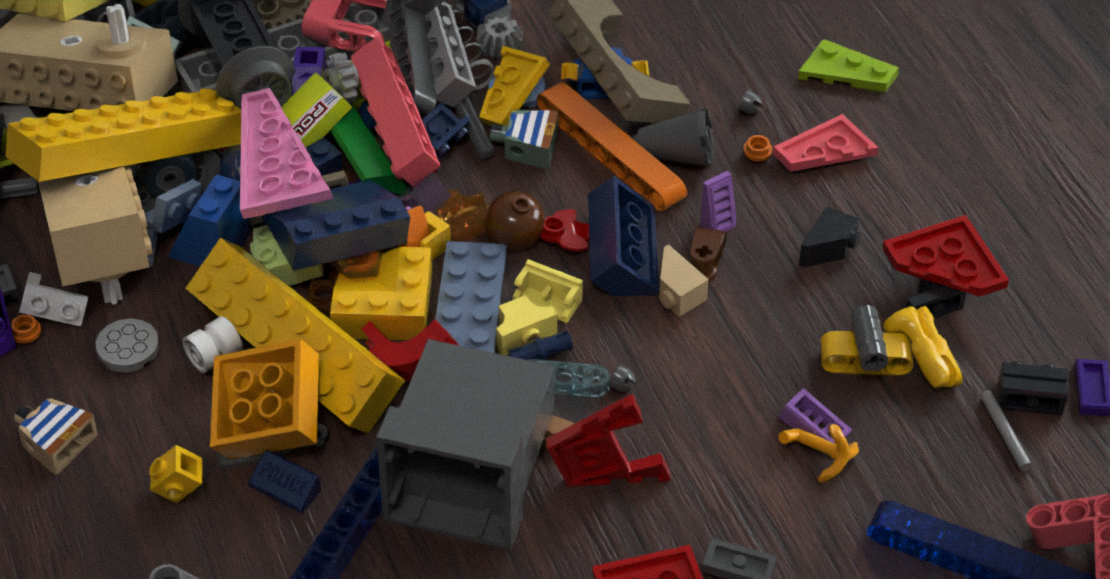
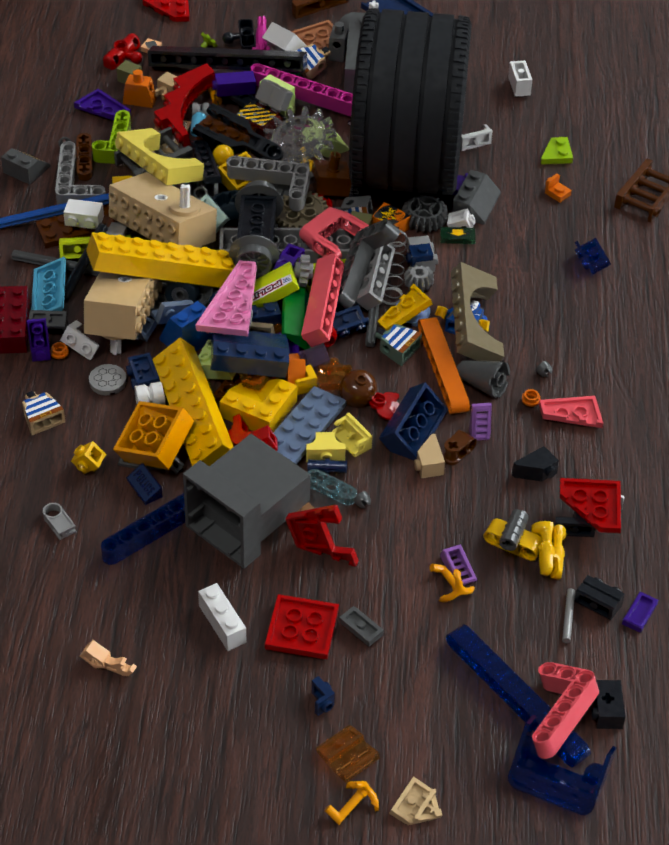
camera: 25 degrees right, 0 degrees up
(178, 312) = (142, 370): none -> dark blue bracket
(846, 65) = (620, 367): lime wing -> none

